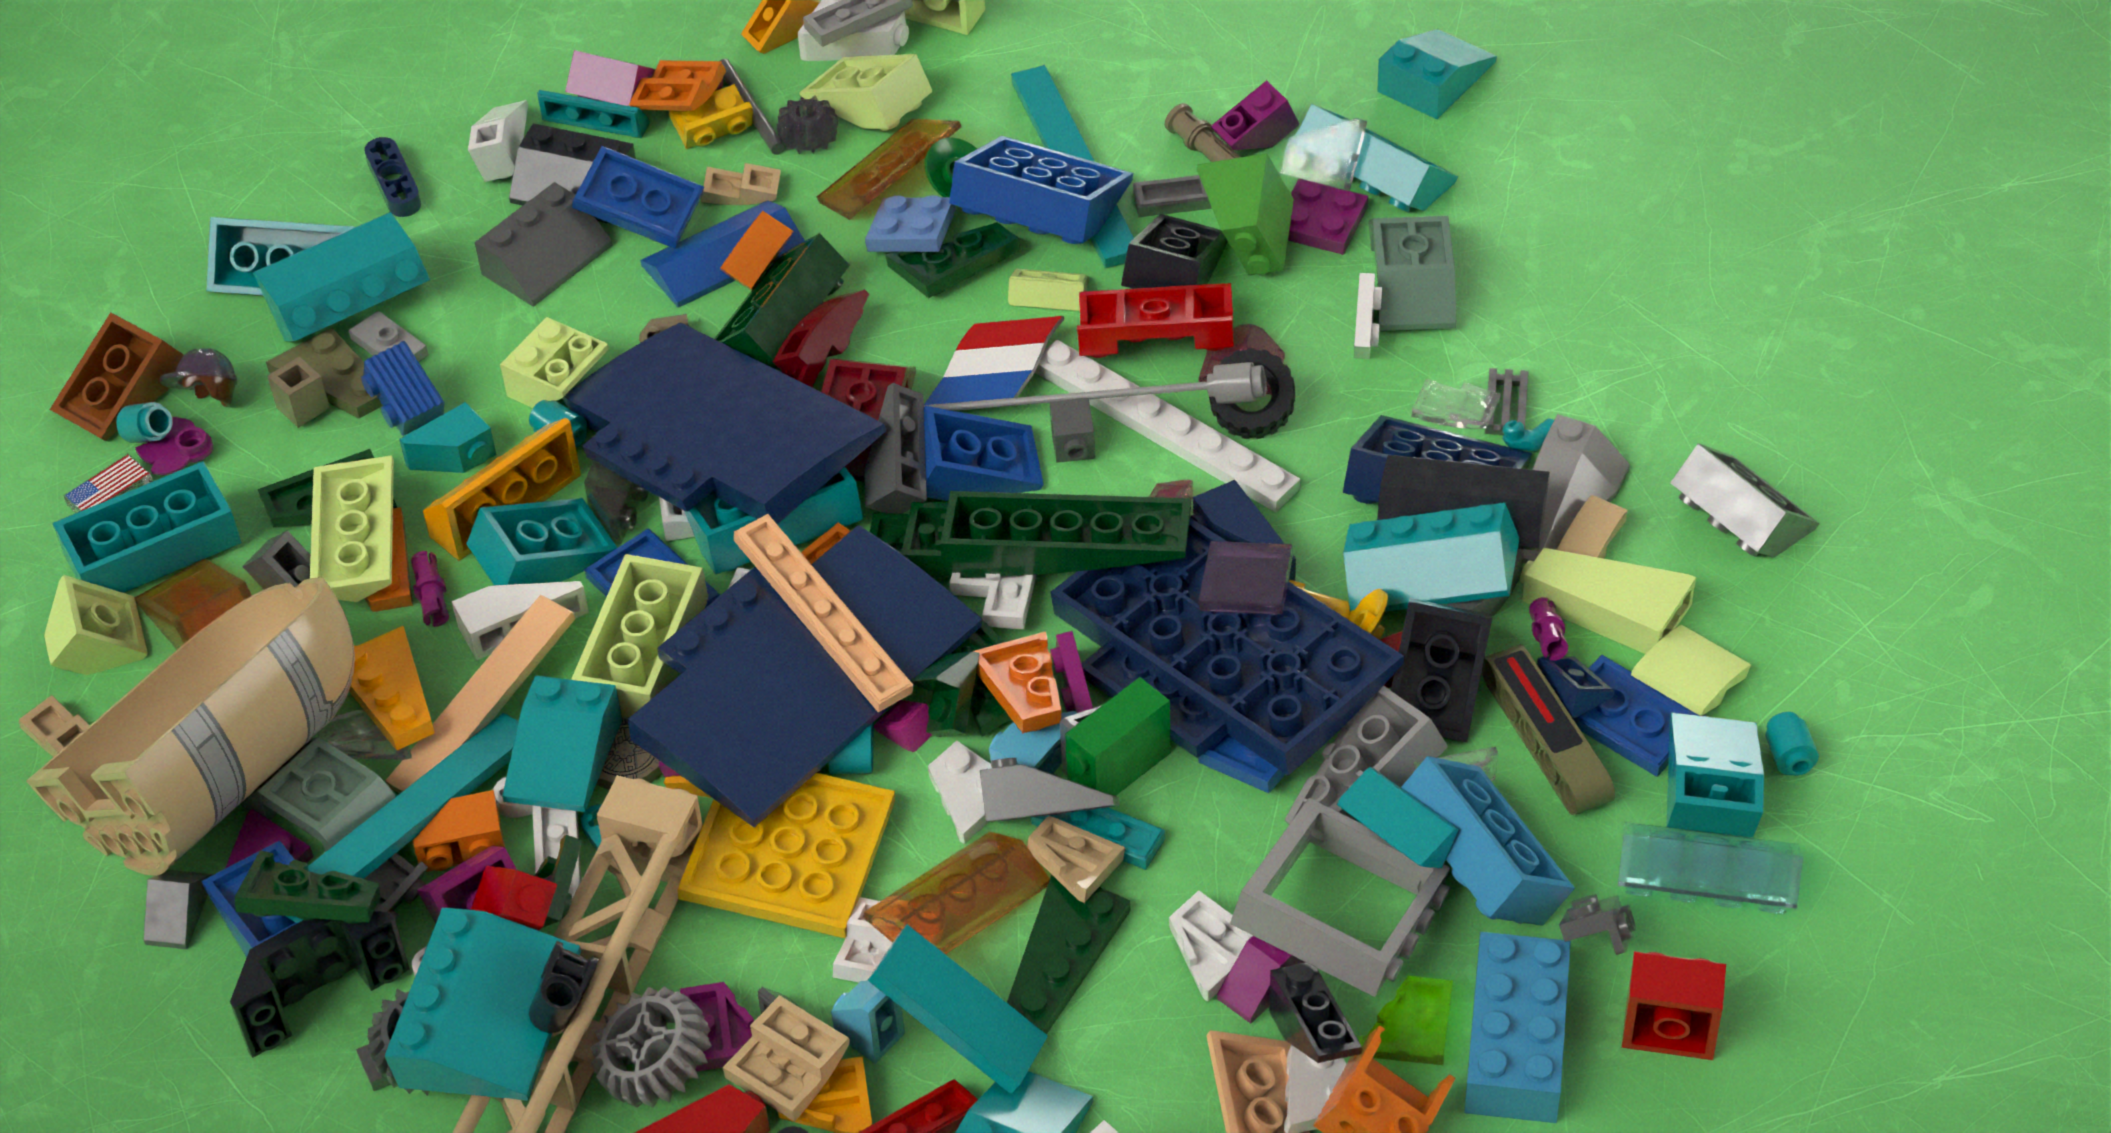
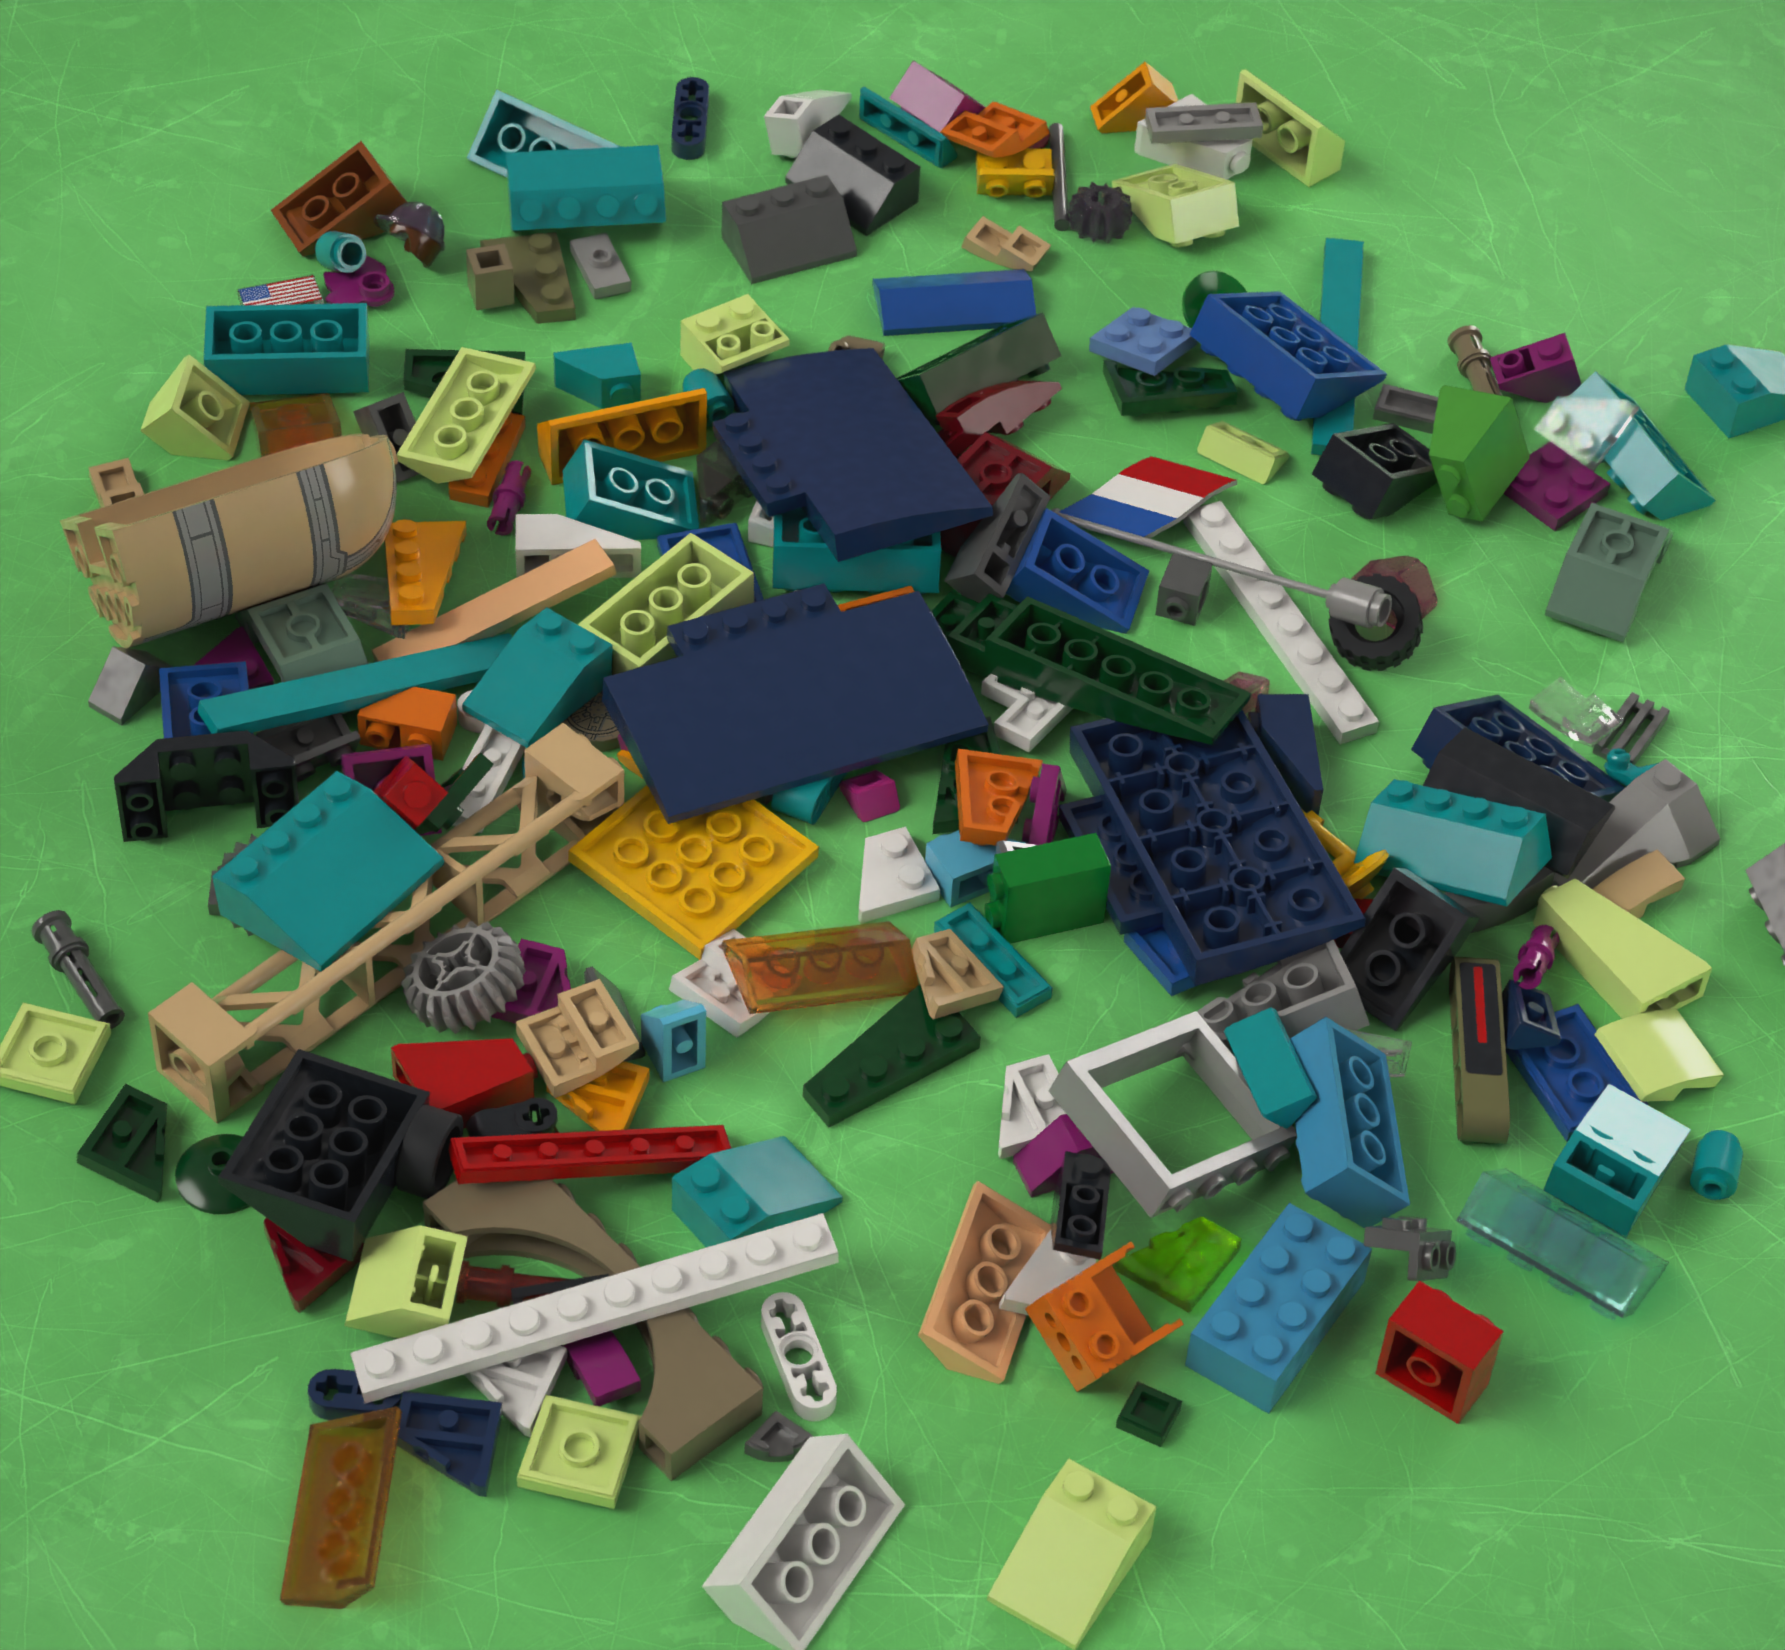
camera: 20 degrees right, 0 degrees up
(296, 892) = (226, 708): dark green wing -> none
(403, 388) = (583, 307): blue brick -> none
(564, 983) = (406, 880): black piece -> none
(638, 197) = (897, 218): blue tile -> none
(756, 250) = (982, 308): orange slope -> none
(823, 613) = (836, 656): light nougat tile -> none
(885, 165) = (1151, 279): clear orange slope -> none
(952, 688) = (926, 771): dark green slope -> none
(958, 1008) = (753, 1059): teal tile -> none
(1028, 792) = (938, 897): slope -> none
(1155, 313) = (1368, 525): red piece -> none
(1246, 577) = (1259, 786): clear purple tile -> none
(1366, 331) = (1533, 594): white wing -> none

